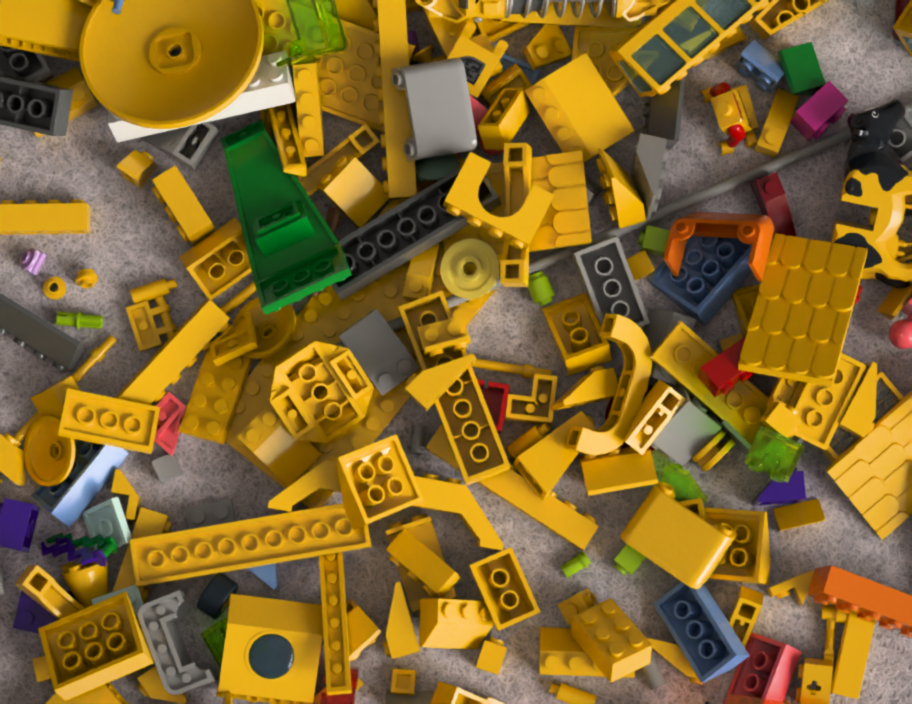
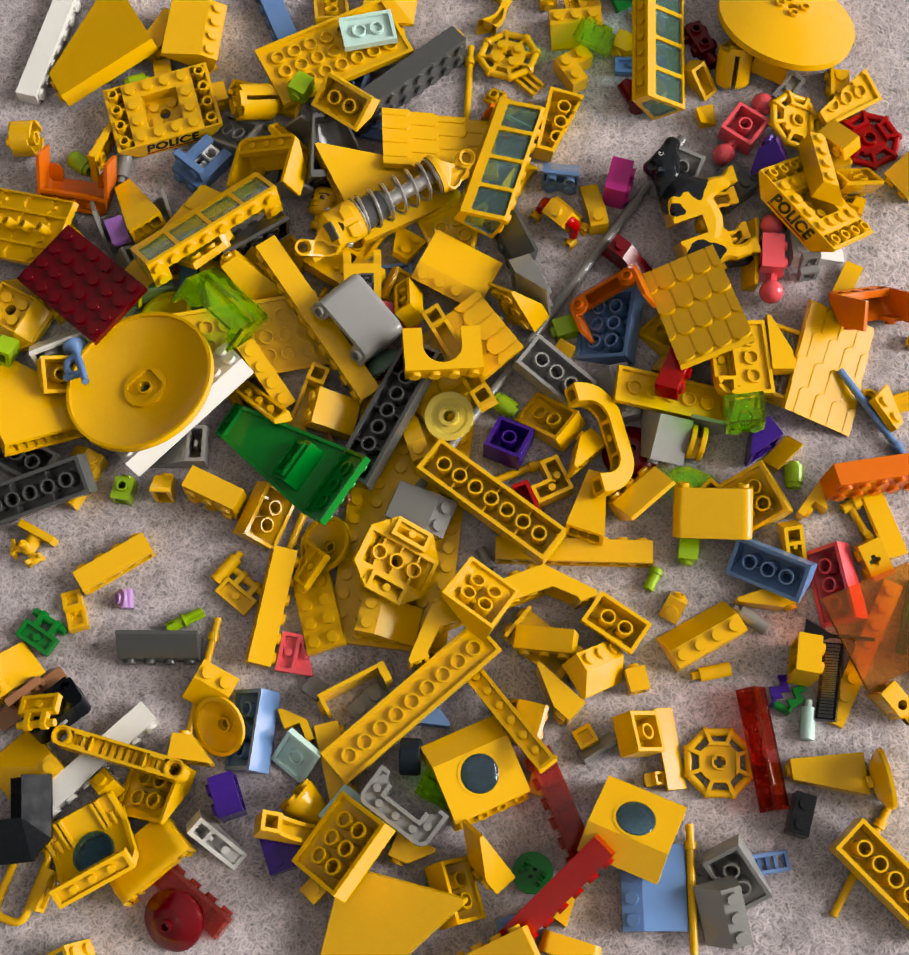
camera: 30 degrees left, 10 degrees down
(57, 294) = (158, 610): yellow plate -> none
(86, 278) = (172, 587): yellow plate -> none
(96, 145) = (123, 489): none -> lime brick
(106, 545) = (304, 770): piece -> none
(108, 421) = (252, 675): yellow plate -> none
(241, 492) = (351, 683): none -> yellow panel
(434, 382) = (475, 502): yellow slope -> none
(444, 336) = (462, 466): yellow bracket -> none
(516, 332) = (508, 442): none -> dark purple brick
(528, 439) = (565, 509): yellow cylinder -> none
(611, 640) = (715, 612): yellow brick -> none
(653, 416) = (641, 438): yellow slope -> none
(781, 419) = (733, 384): yellow brick -> none
(794, 545) = (793, 475): none -> lime brick
(802, 69) = (590, 161): green slope -> none

